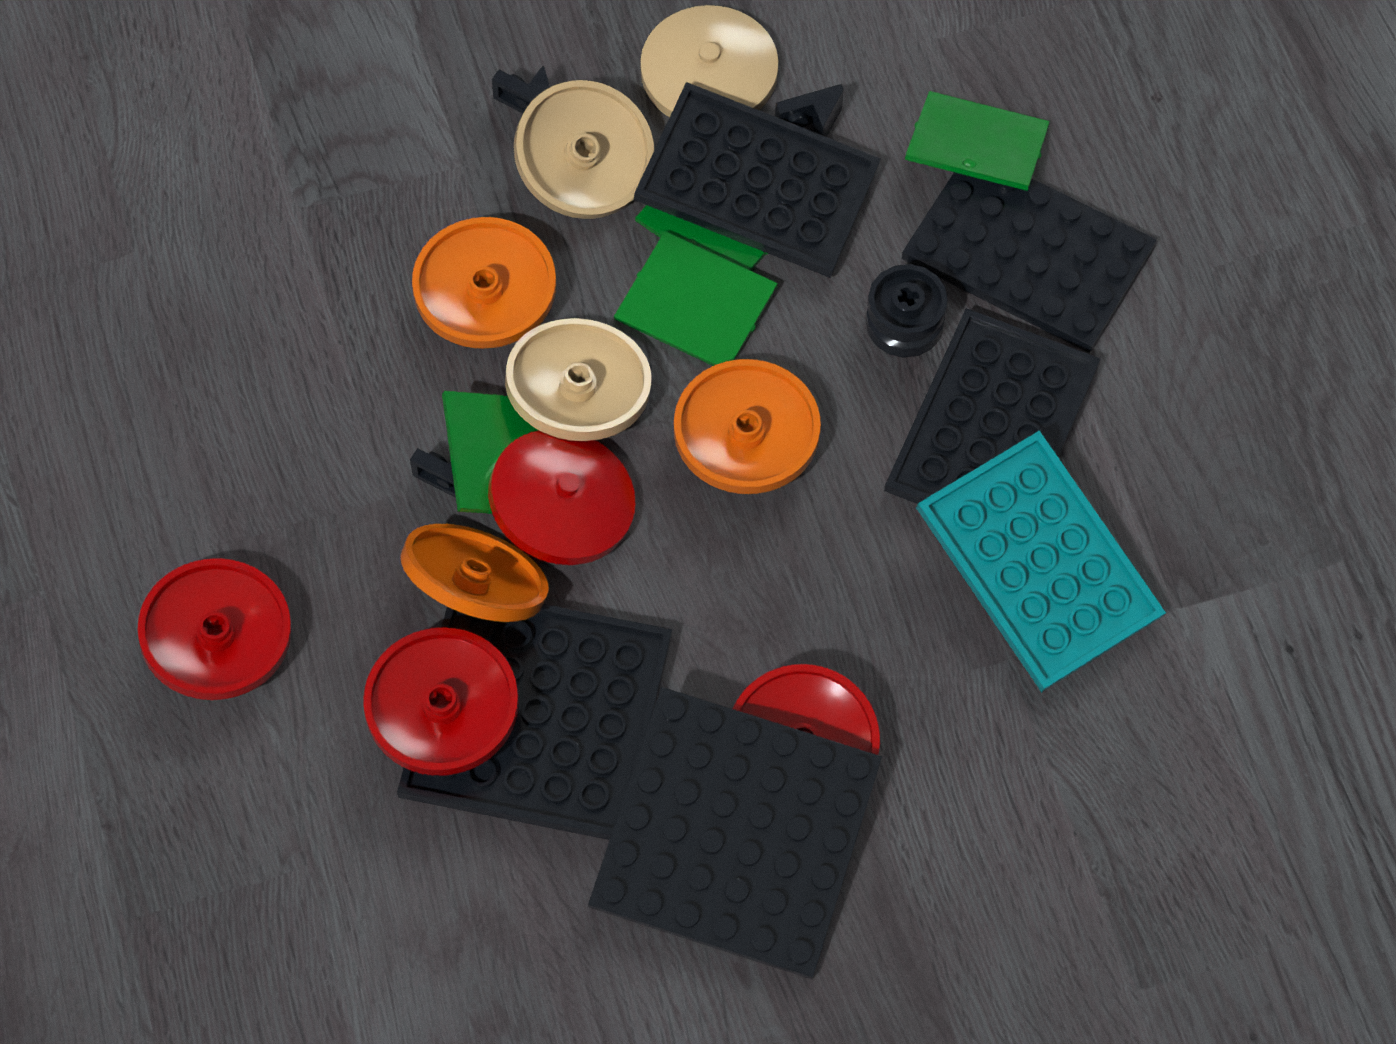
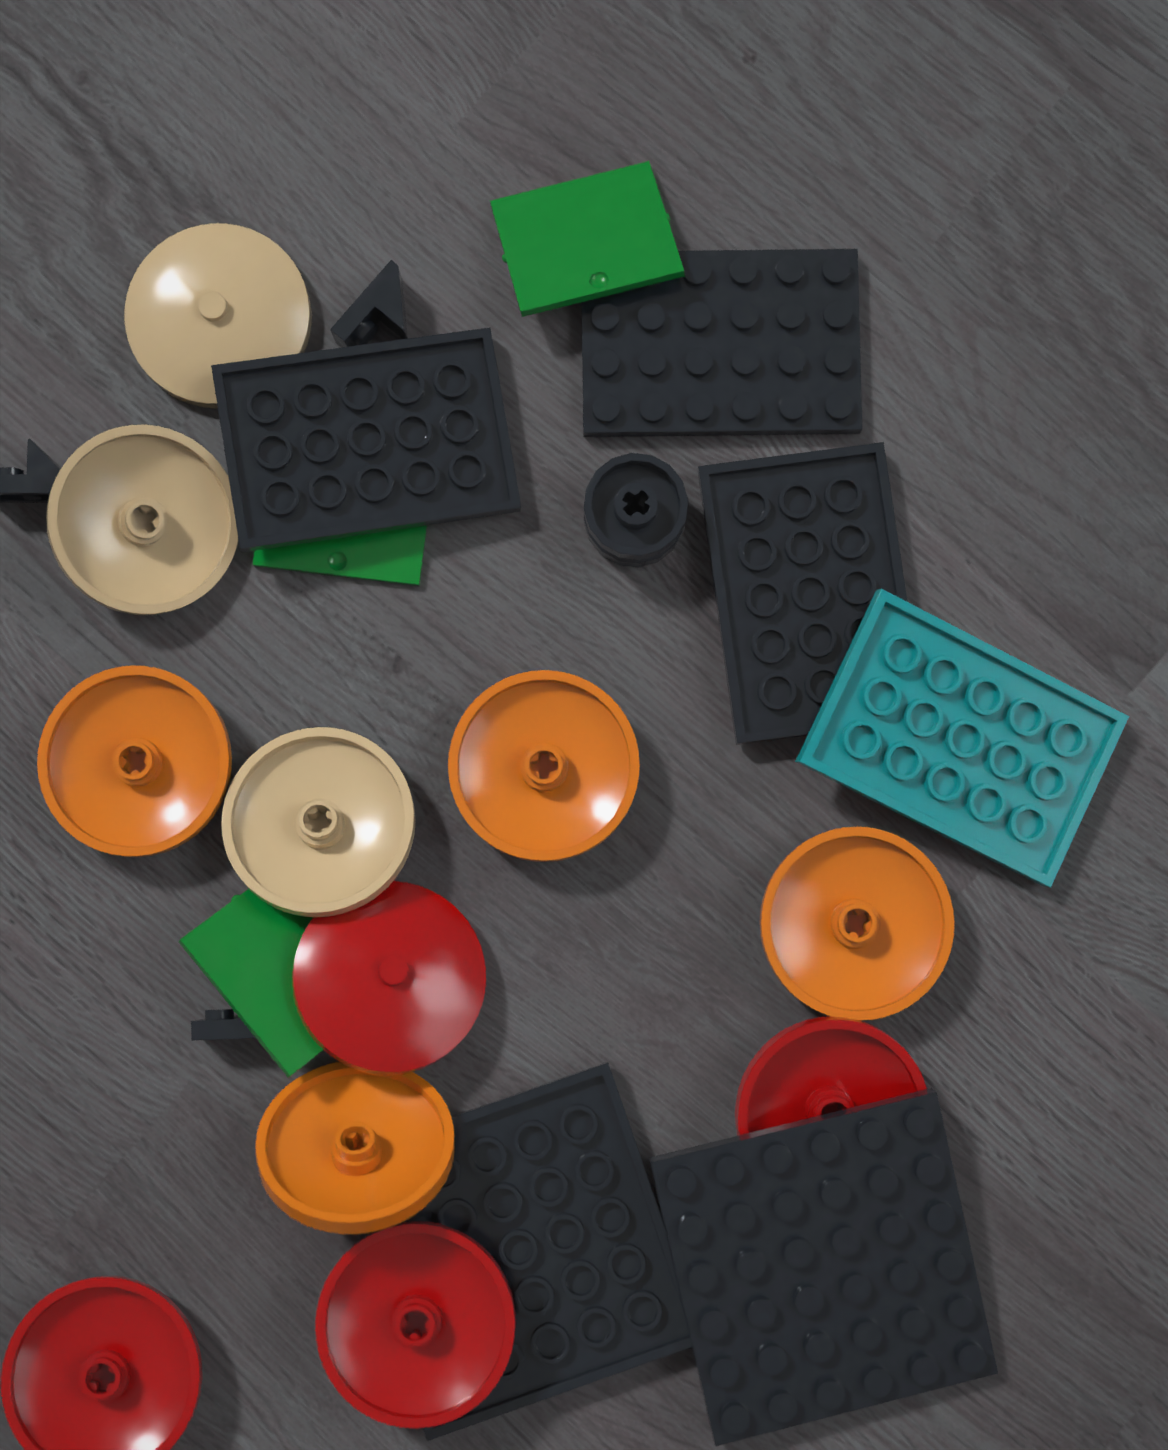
camera: 30 degrees left, 20 degrees up
(695, 301) = (386, 632): green piece -> none
(896, 632) = (857, 923): none -> orange dish

